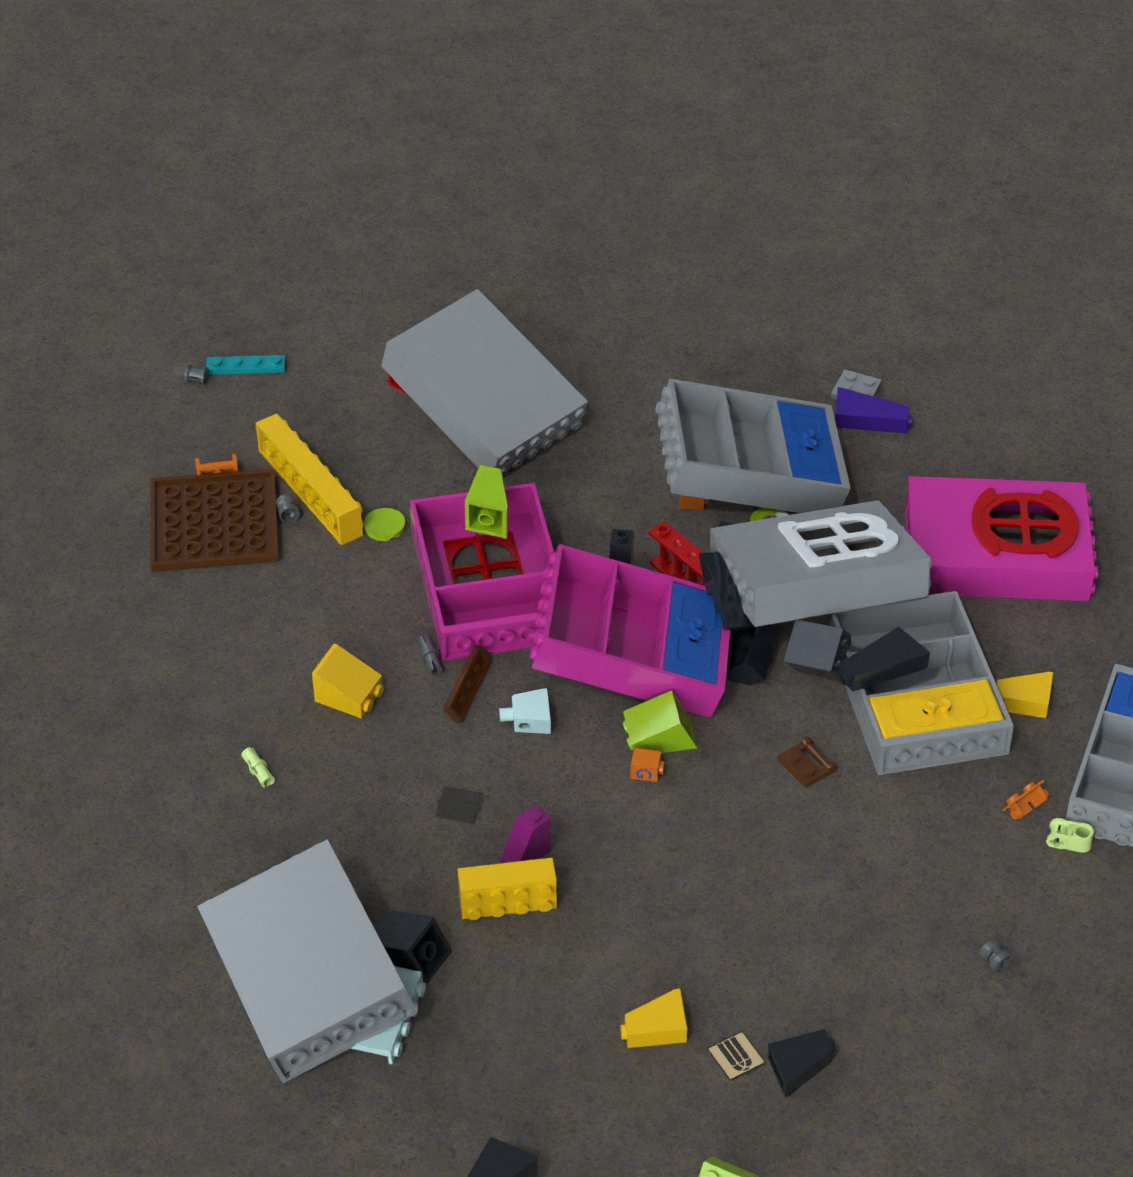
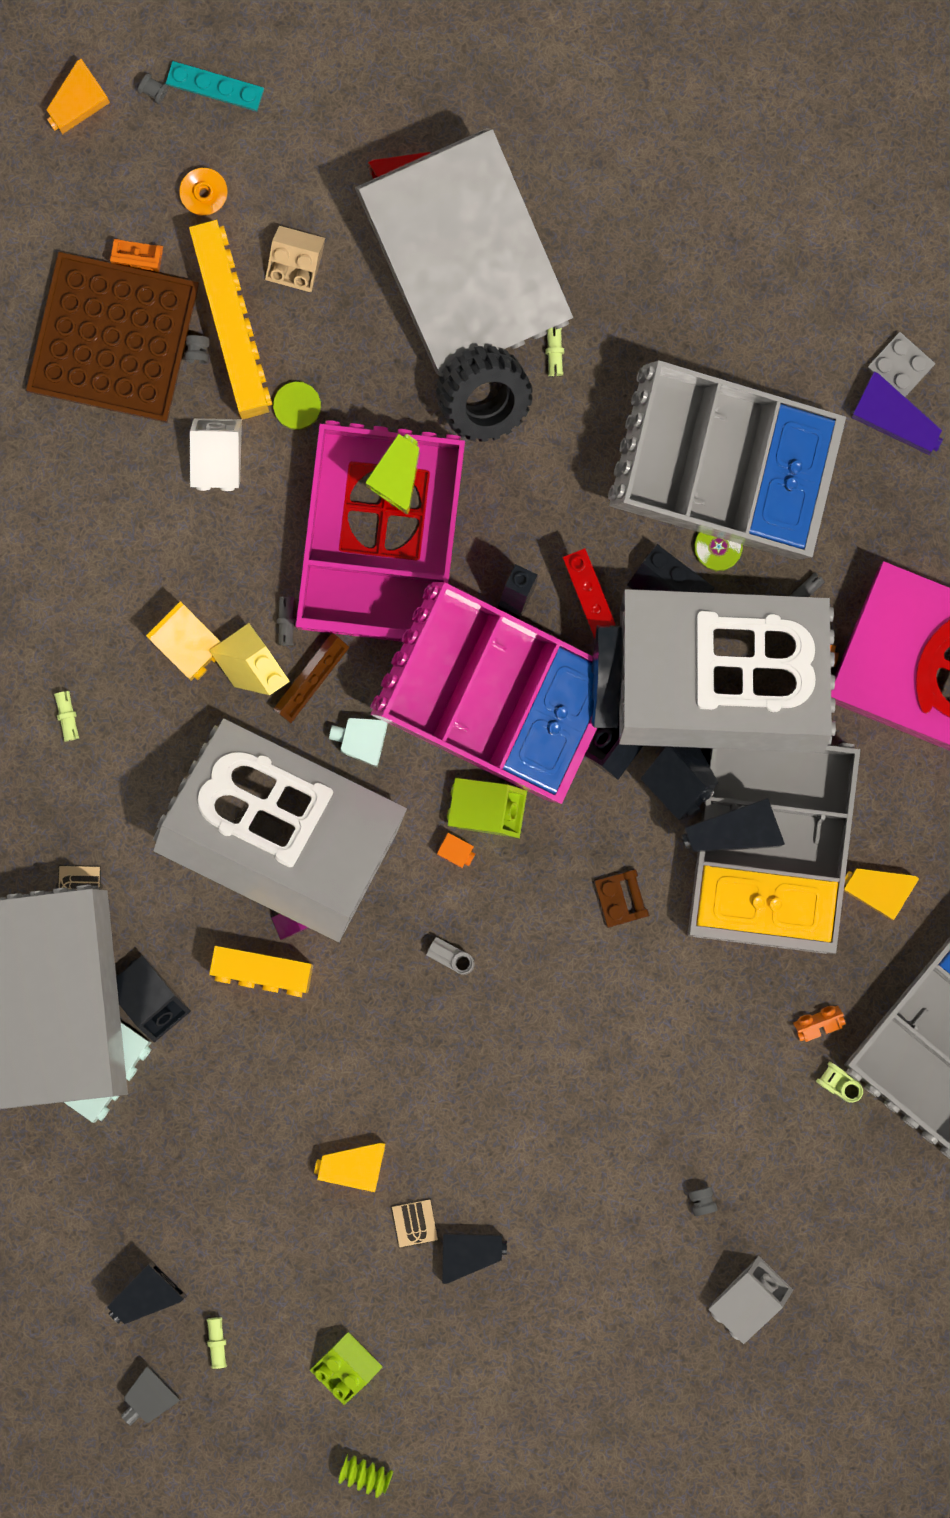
camera: 20 degrees right, 40 degrees up
(137, 392) = (76, 99): none -> light orange slope
(253, 414) = (203, 179): none -> light orange dish
(327, 561) = (215, 454): none -> white slope
(348, 439) = (294, 258): none -> tan slope
(410, 675) = (249, 662): none -> light yellow slope
(482, 765) = (329, 855): none -> light grey panel
(556, 448) = (470, 372): none -> black tyre
(581, 443) = (554, 352): none -> yellowish green pin
(684, 840) = (448, 955): none -> light grey piece
(1082, 1017) = (751, 1300): none -> light grey slope

